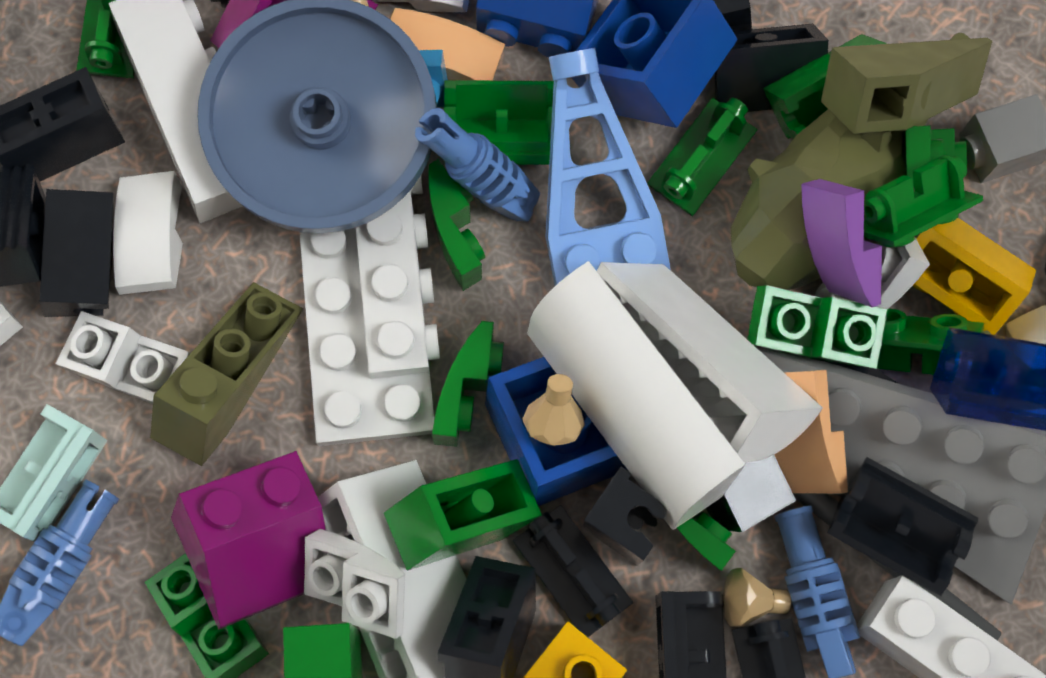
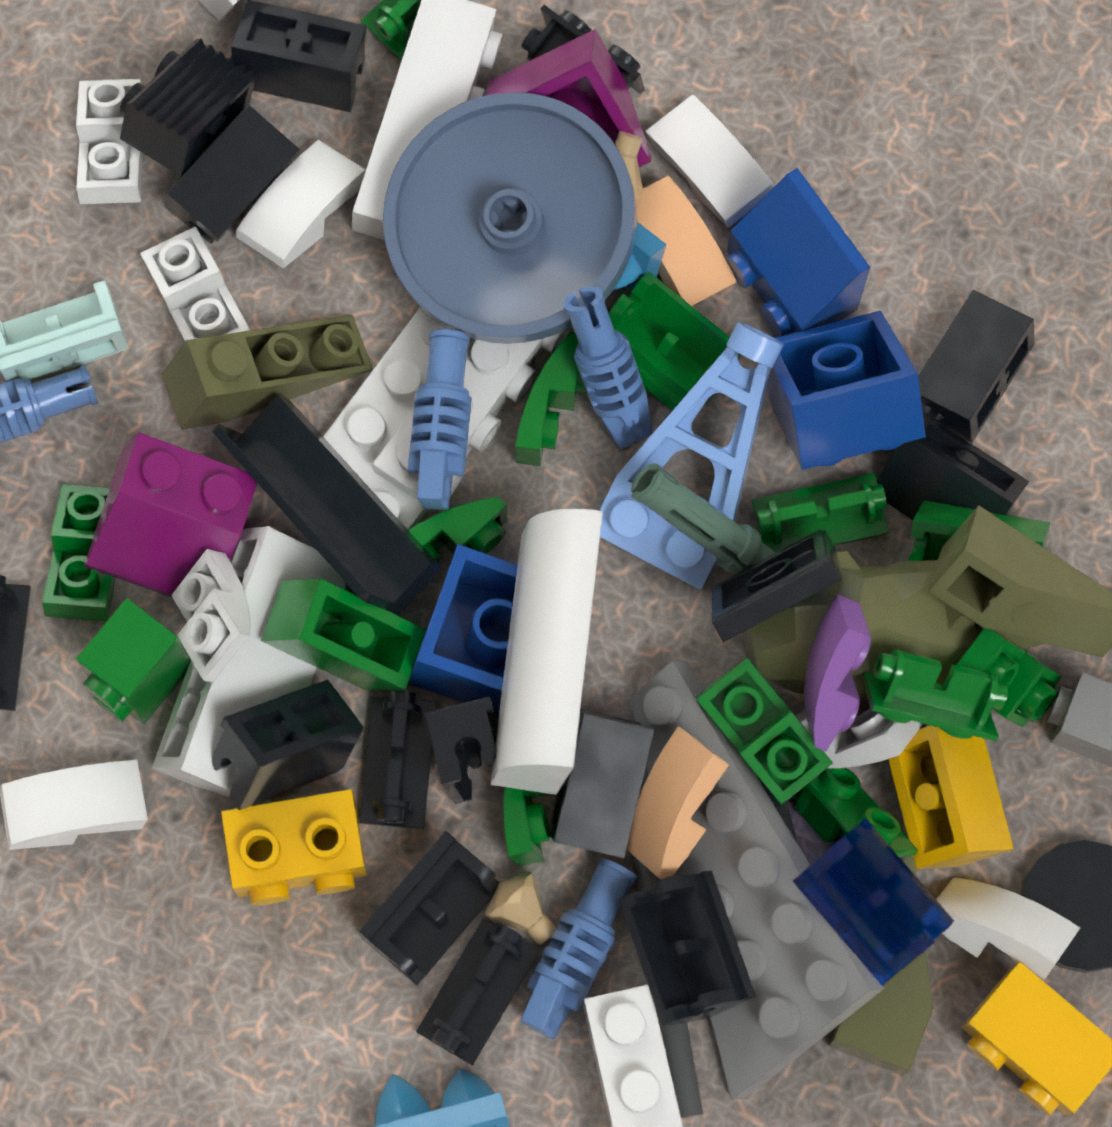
camera: 45 degrees right, 0 degrees up
(369, 427) = (331, 506): none -> black panel
(395, 297) = (441, 420): none -> medium blue hinge
(555, 415) = (477, 614): tan rock -> none
(673, 219) = (732, 544): none -> sand green pin
(725, 373) = (639, 671): white brick -> none
(740, 217) = (774, 584): none -> black tile

